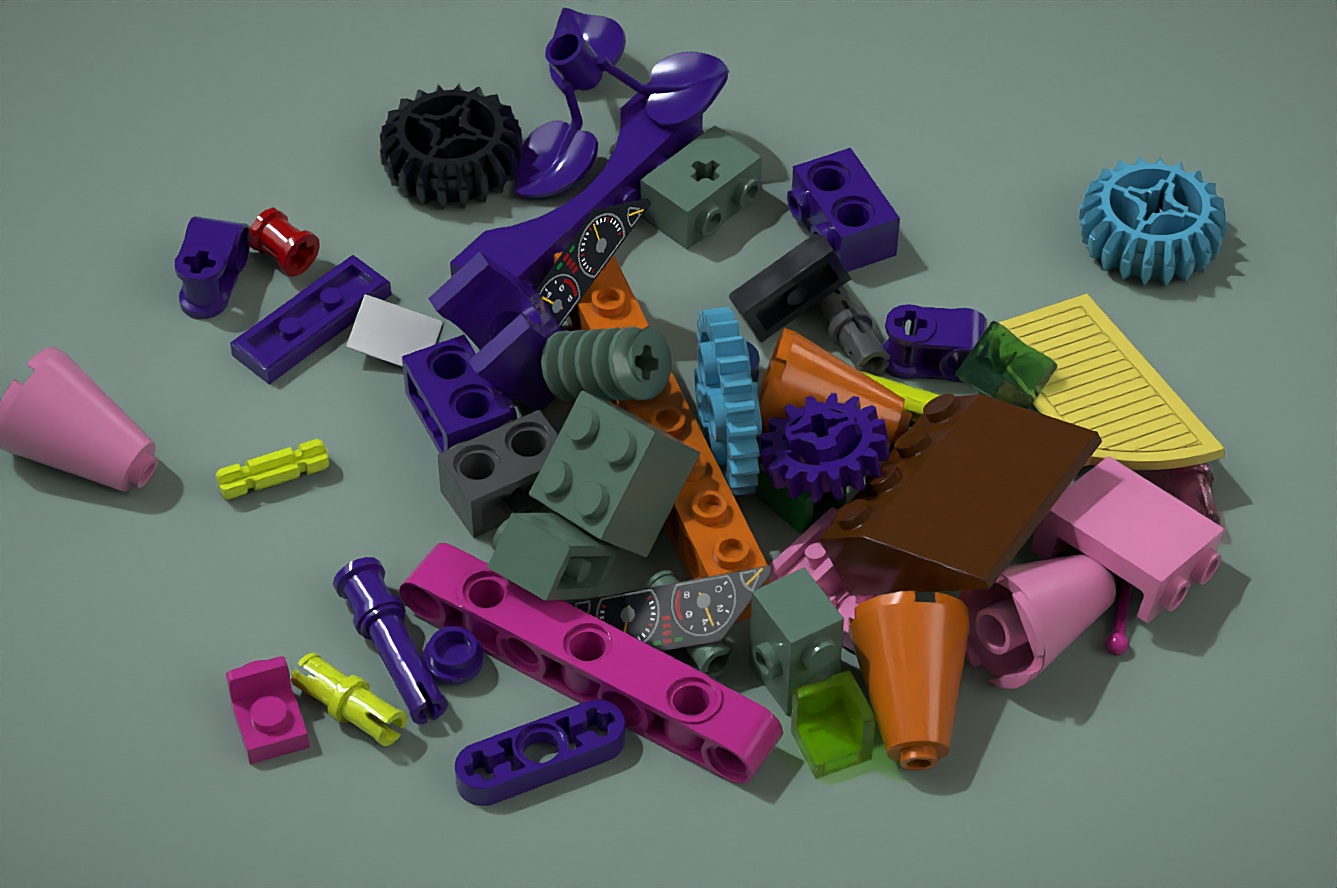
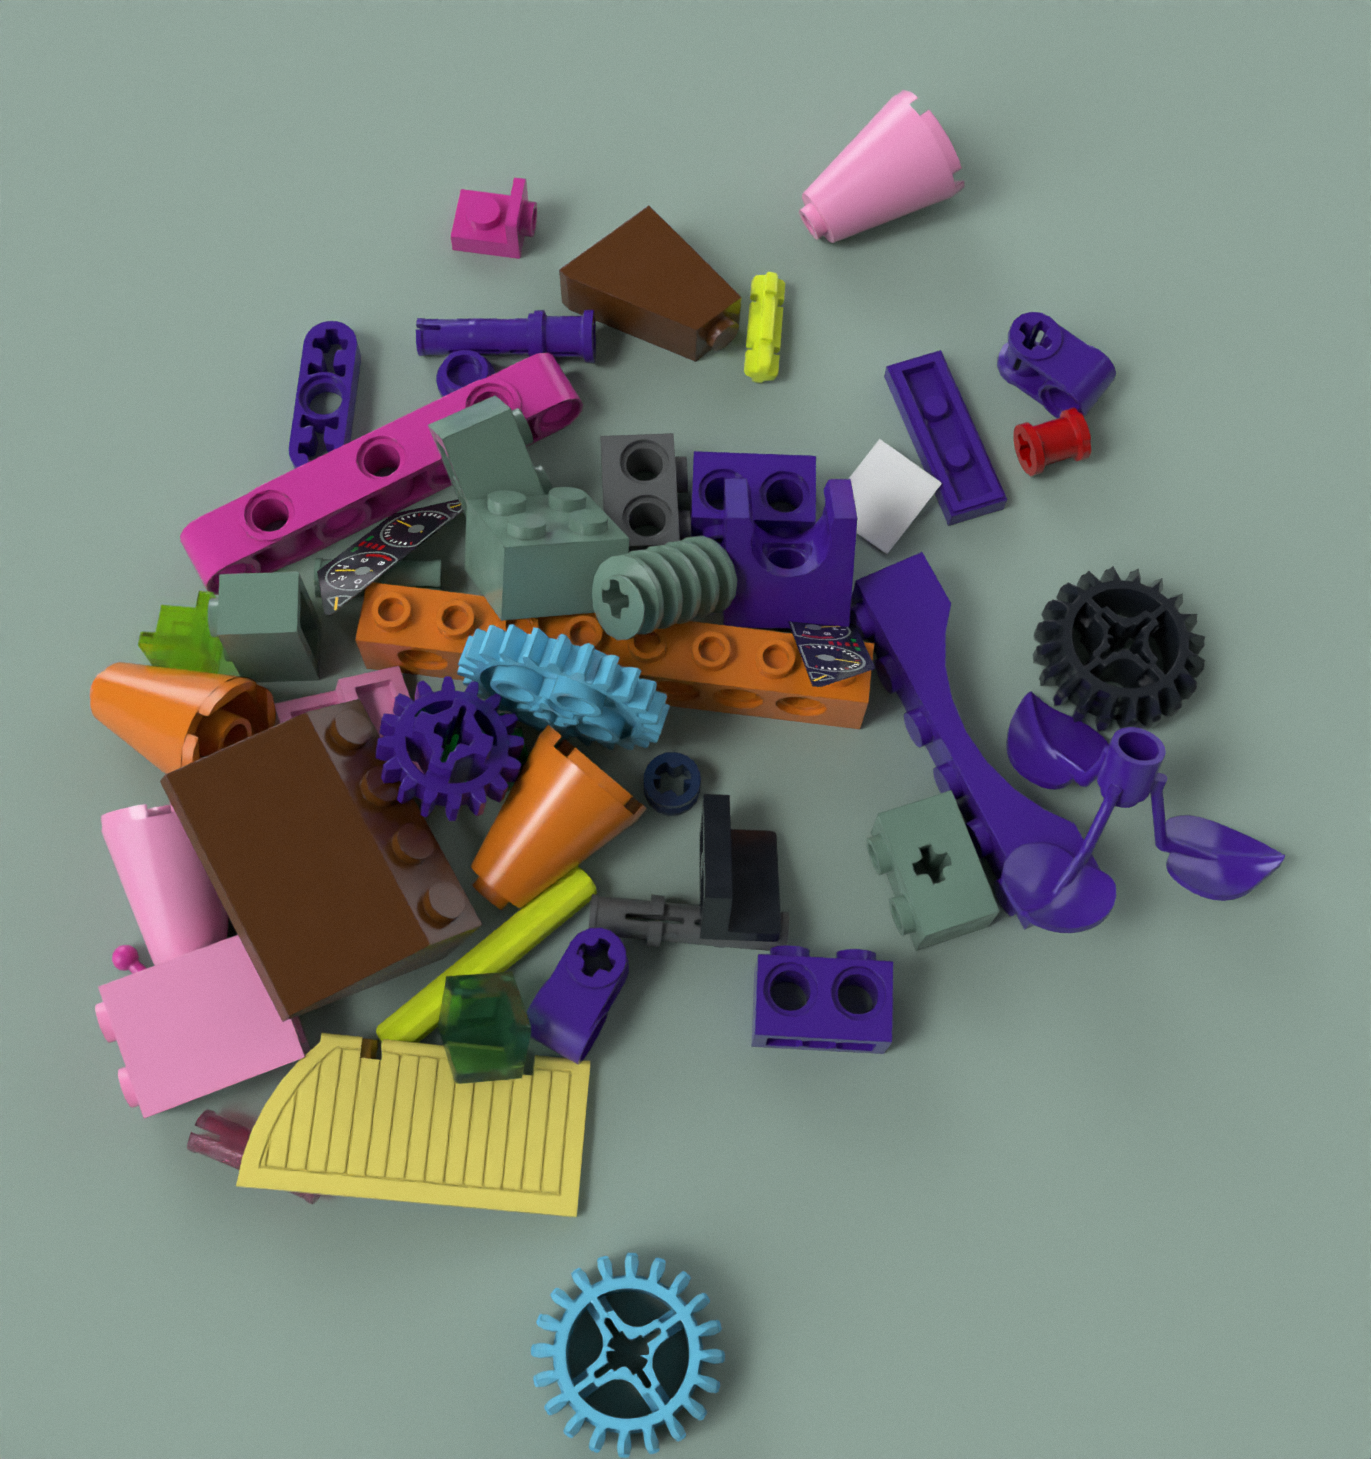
camera: 115 degrees right, 20 degrees up
(278, 553) = (653, 288): none -> reddish brown slope
(349, 699) = (467, 280): neon yellow pin -> none

